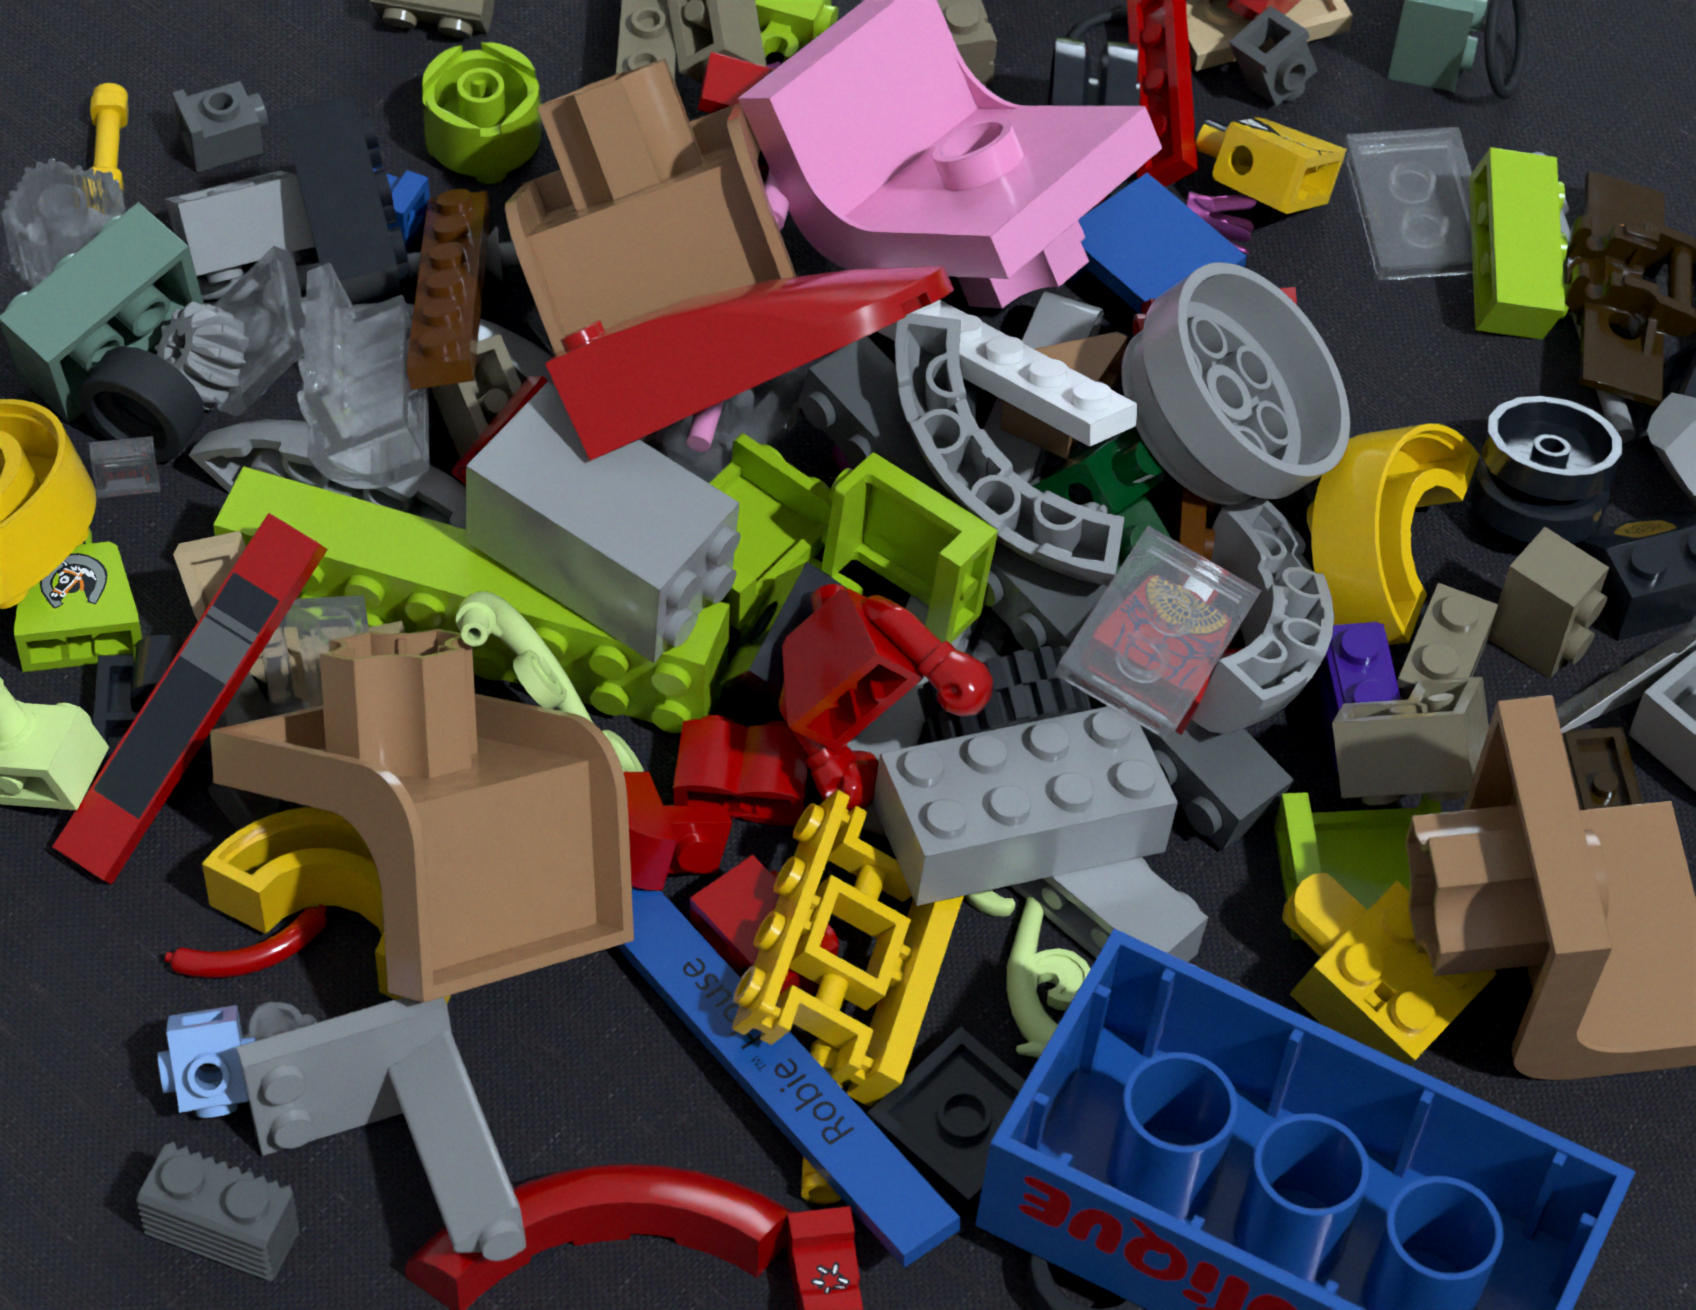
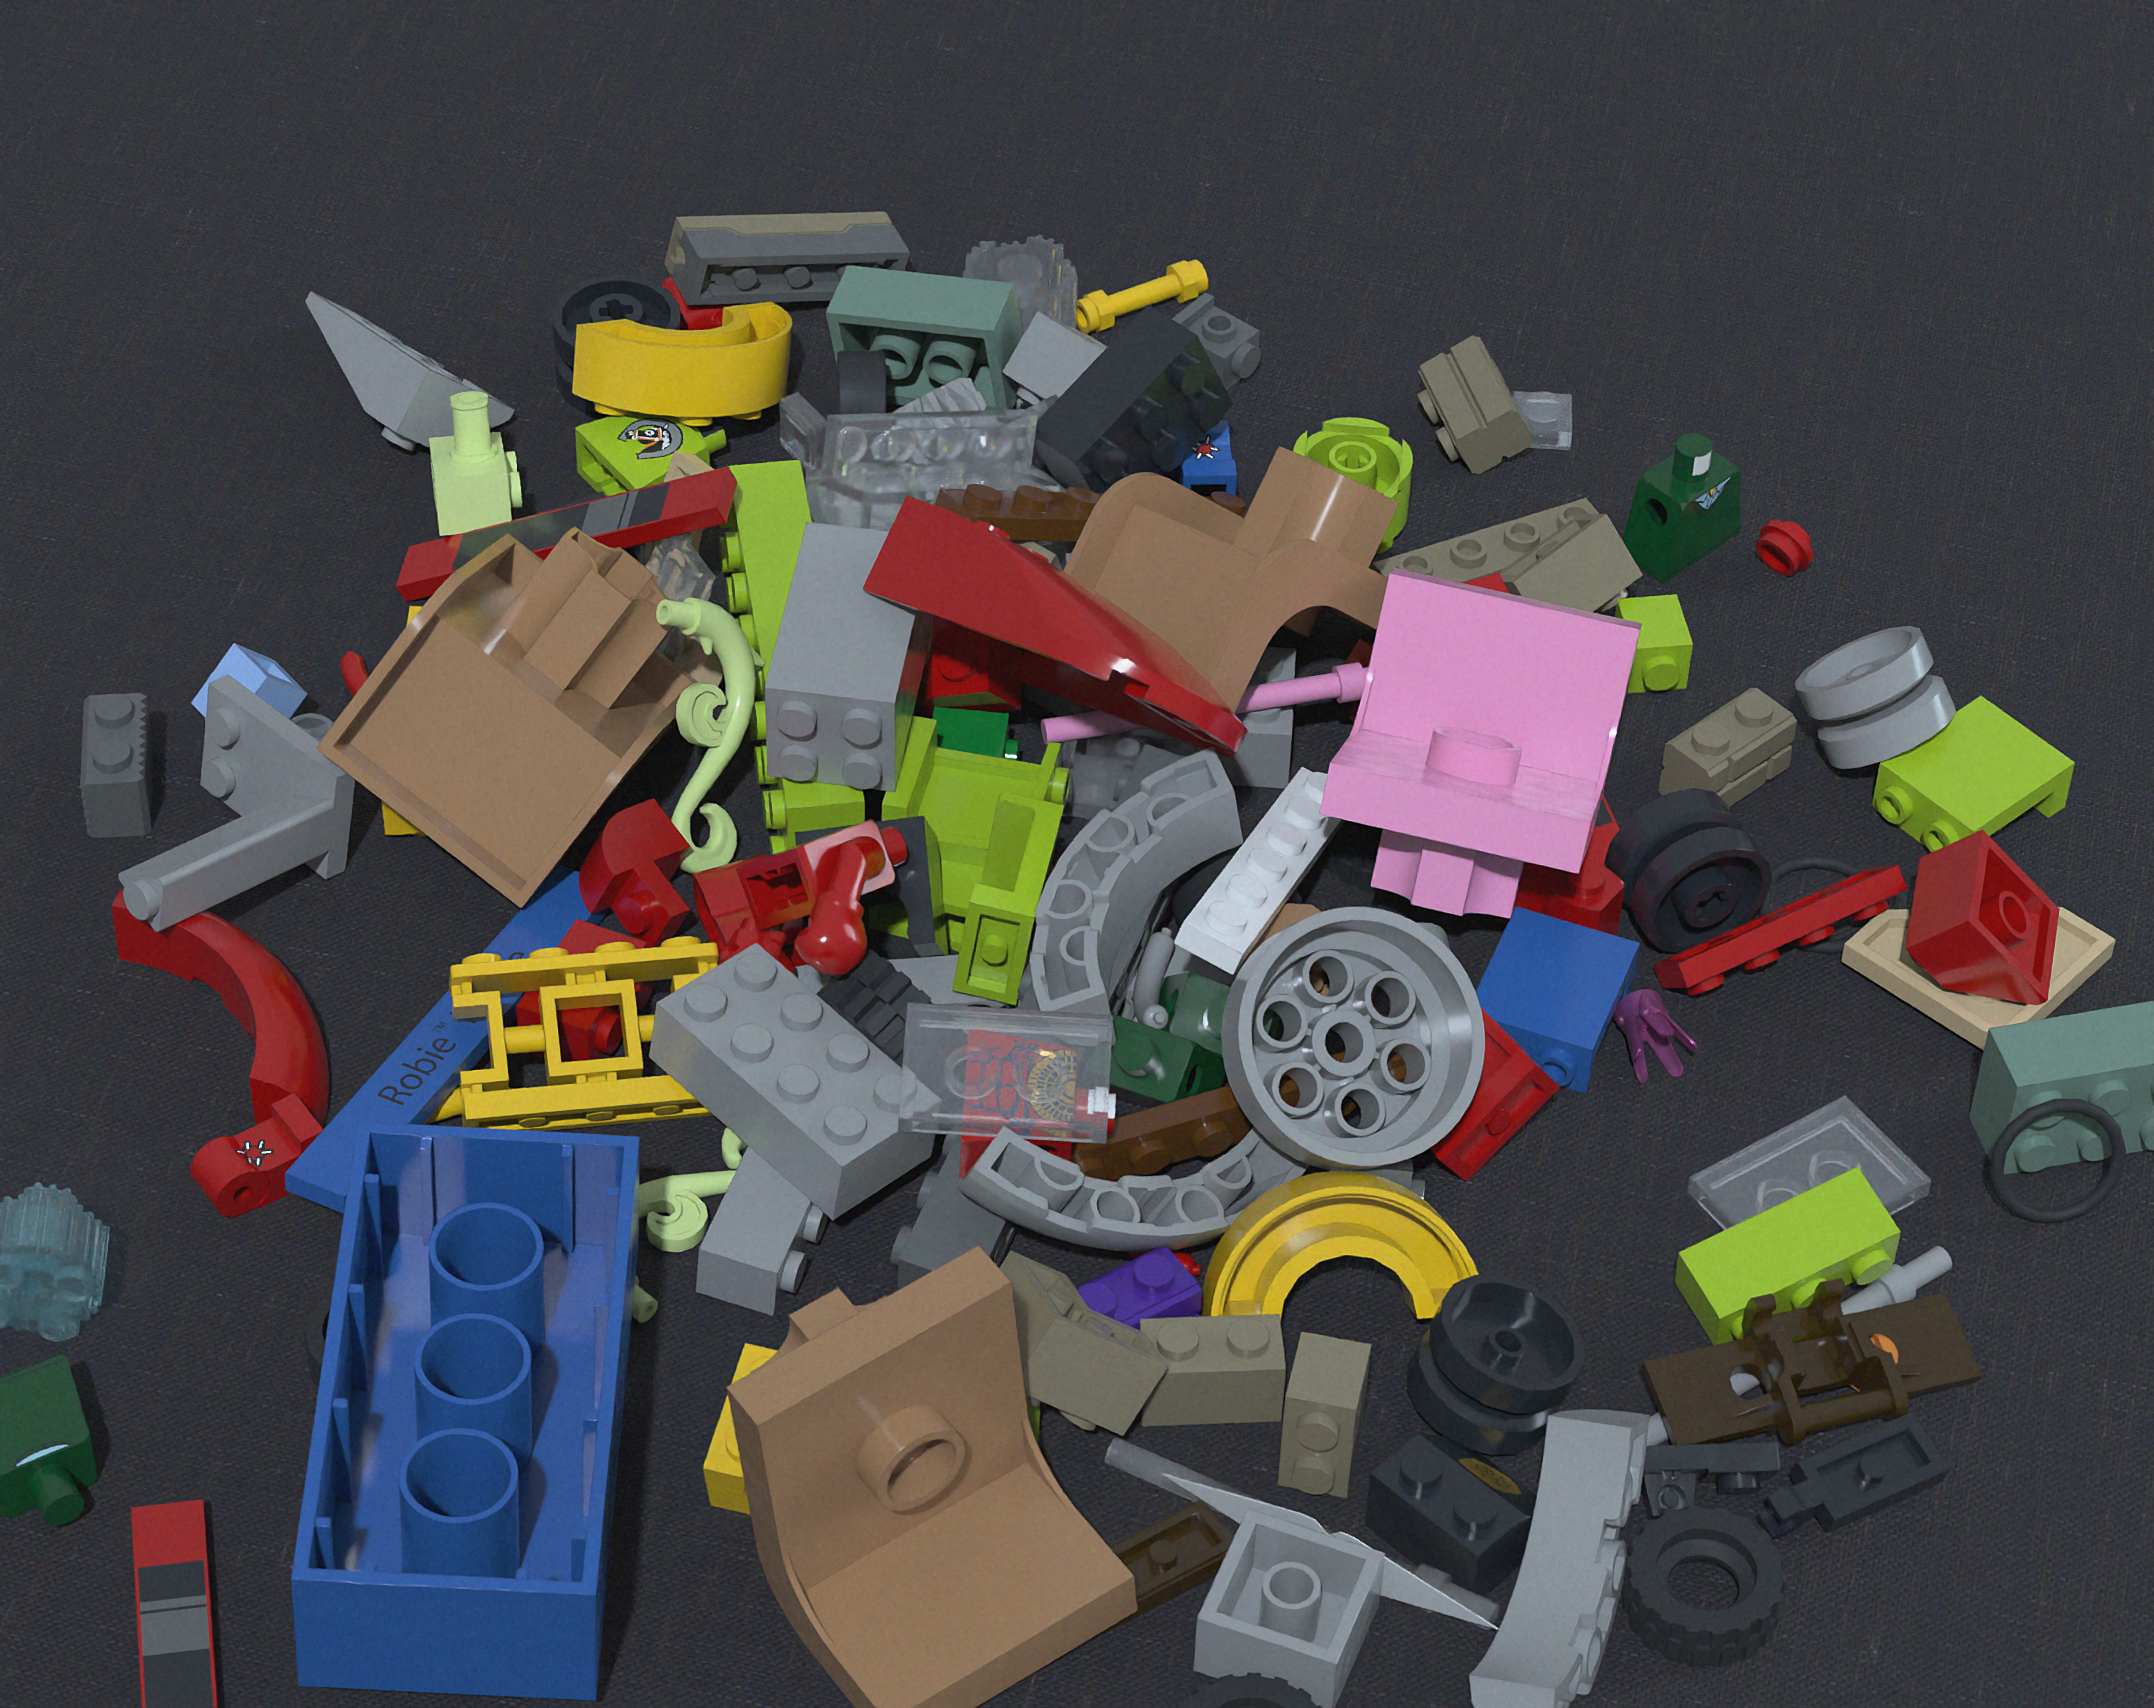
camera: 65 degrees right, 10 degrees down
(1272, 162) = (1738, 1041): yellow torso -> none
(1283, 69) = (1882, 995): dark grey brick -> none

